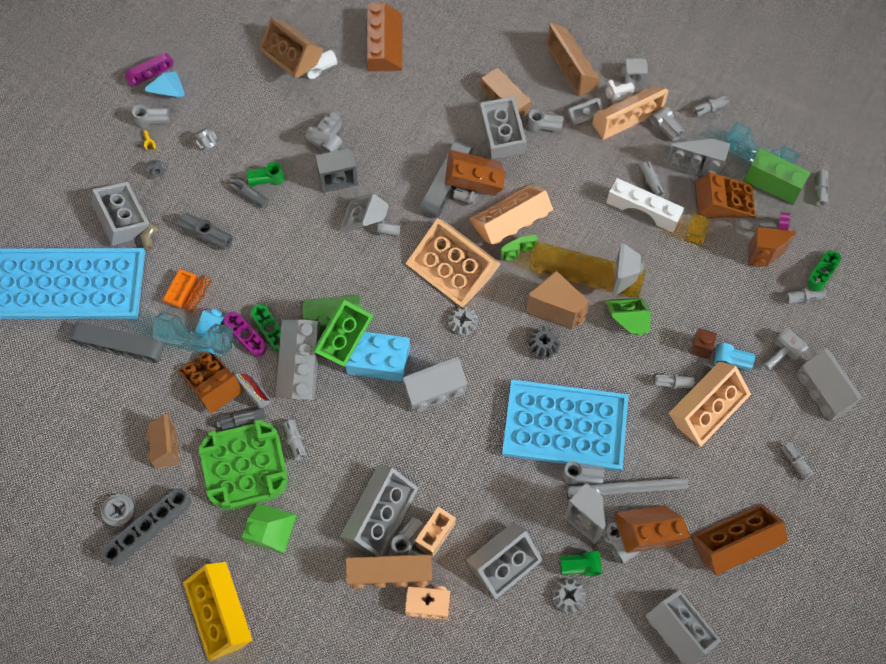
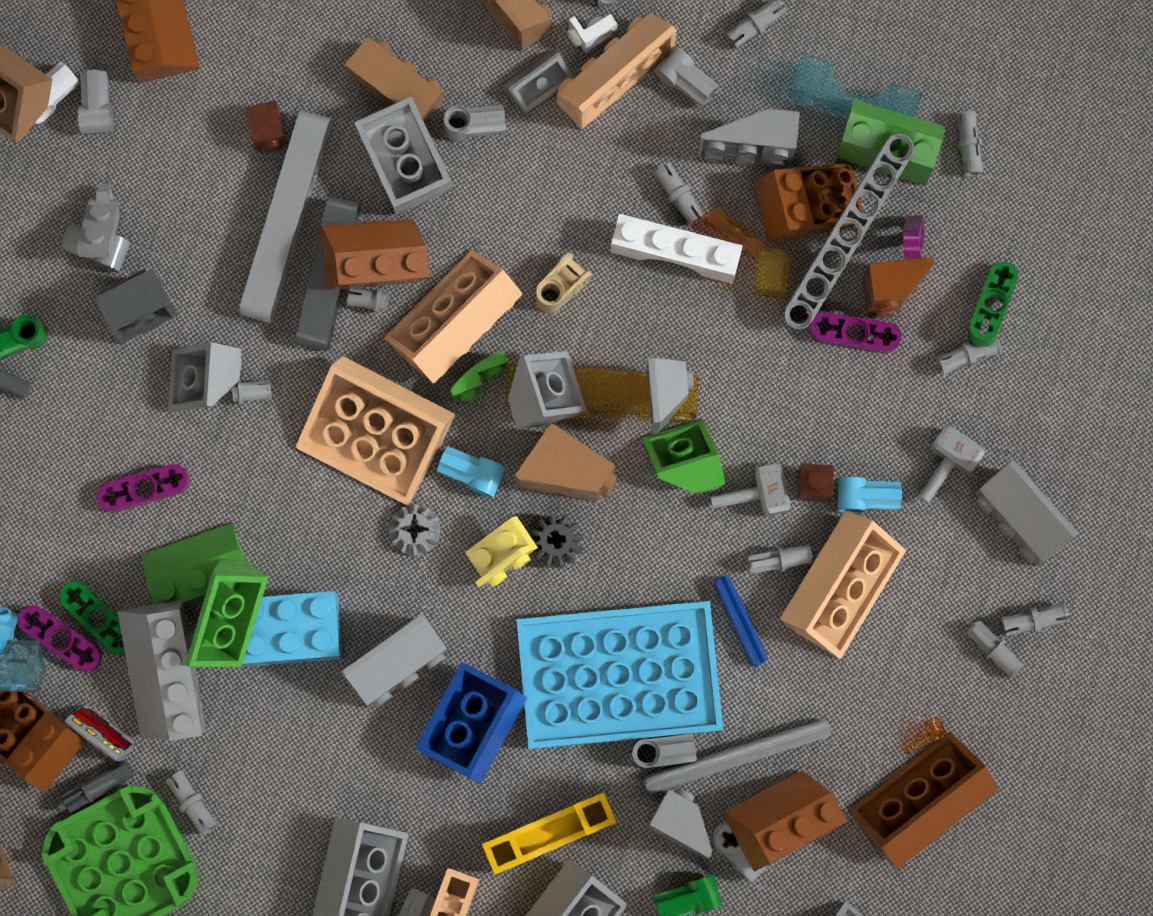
camera: 15 degrees left, 15 degrees up
(328, 260) = (122, 502): none -> magenta beam
(342, 76) = (95, 112): none -> light grey piece
(429, 147) = (285, 216): none -> light grey beam
(431, 101) = (266, 127): none -> copper brick
(471, 429) = (471, 722): none -> blue brick
(507, 298) = (478, 474): none -> medium azure piece
(510, 340) = (500, 551): none -> light yellow bracket
(523, 501) = (549, 833): none -> yellow arch
(554, 255) = (544, 390): none -> light grey slope
(577, 208) = (566, 280): none -> tan piece
(644, 411) = (740, 621): none -> blue axle
(671, 196) = (735, 232): none -> clear orange pin
(675, 342) = (770, 491): none -> light grey piece
(728, 261) = (877, 343): none -> magenta beam
(752, 202) = (843, 246): none -> light grey beam
(752, 501) = (935, 732): none -> clear orange hand
(824, 449) = (1035, 619): none -> light grey pin

